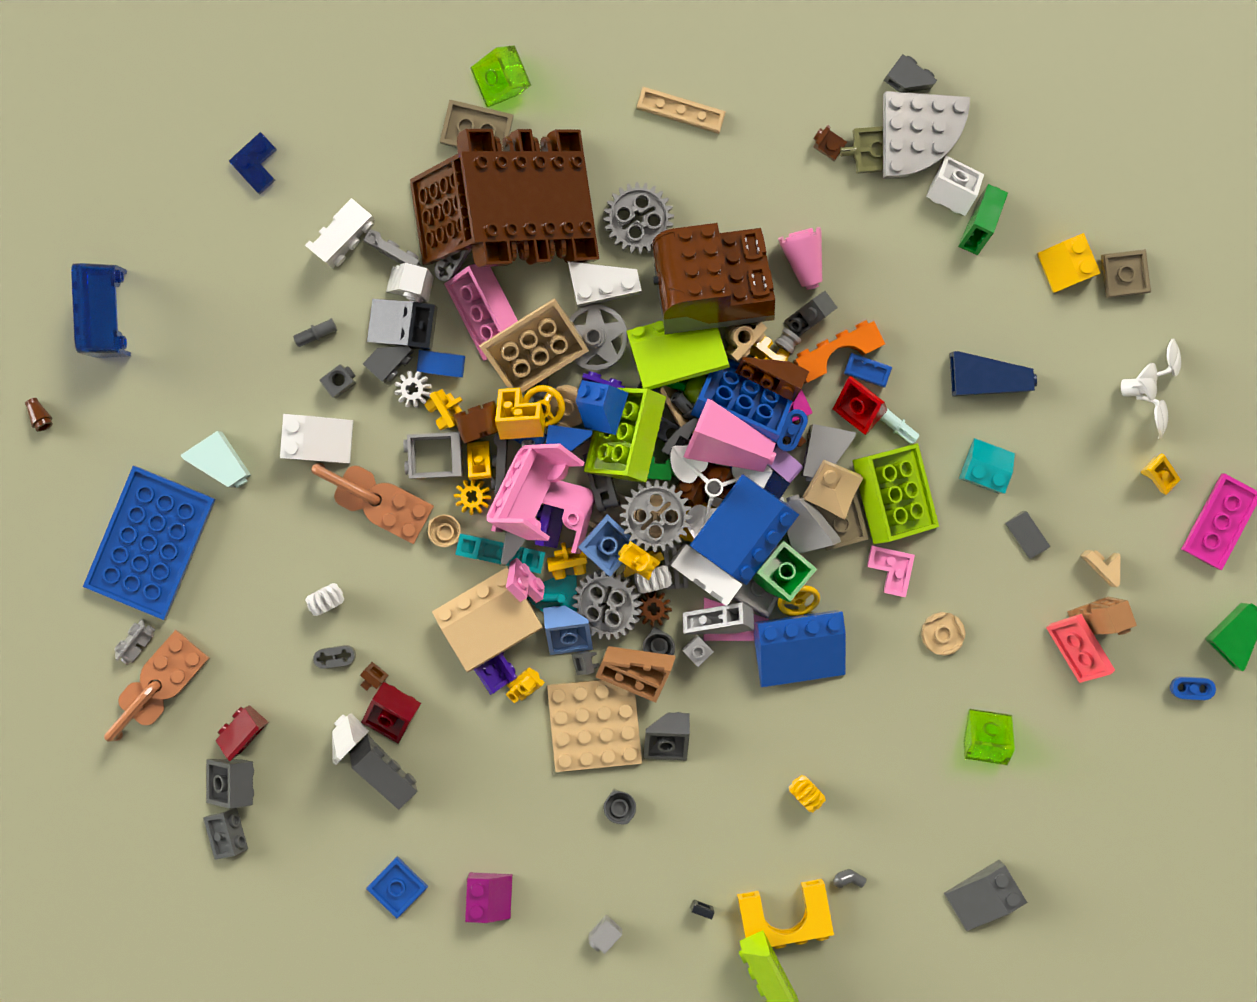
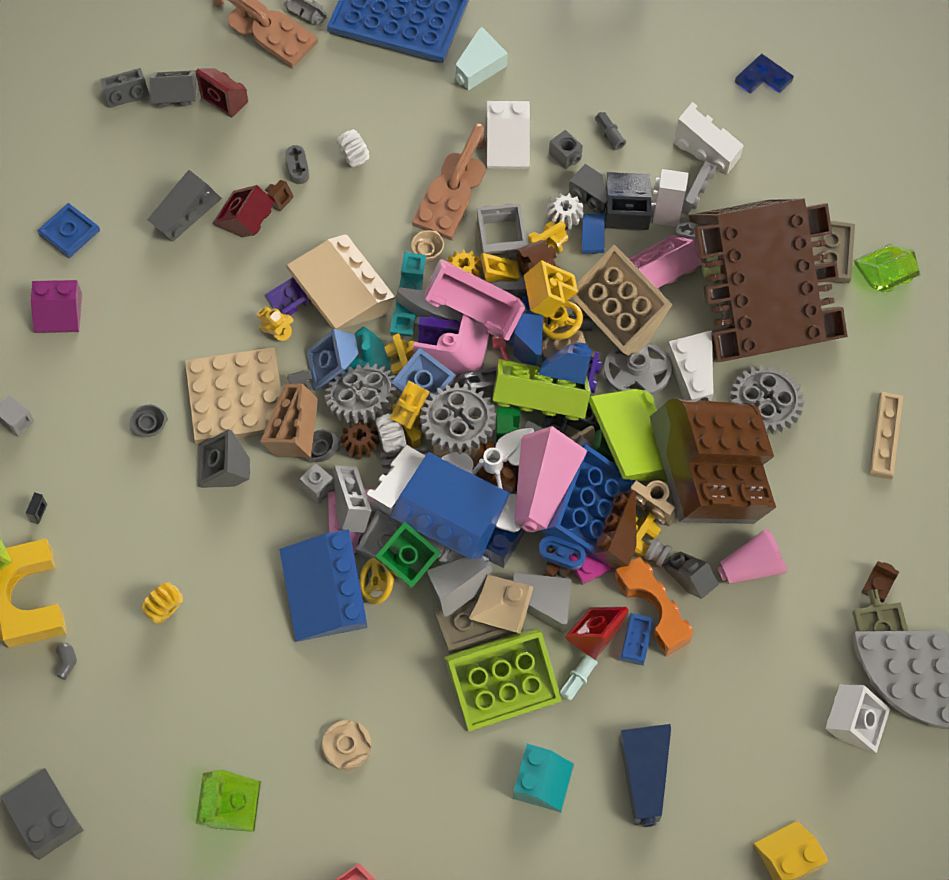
camera: 85 degrees right, 25 degrees down
(346, 736) = (215, 168): white wedge -> none
(523, 582) = (384, 311): bright pink plate -> none
(785, 465) = (525, 553): lavender slope -> none
(898, 566) = (419, 687): bright pink plate -> none
(983, 219) = (825, 749): green slope -> none
(1027, 534) = (467, 832): dark grey slope -> none

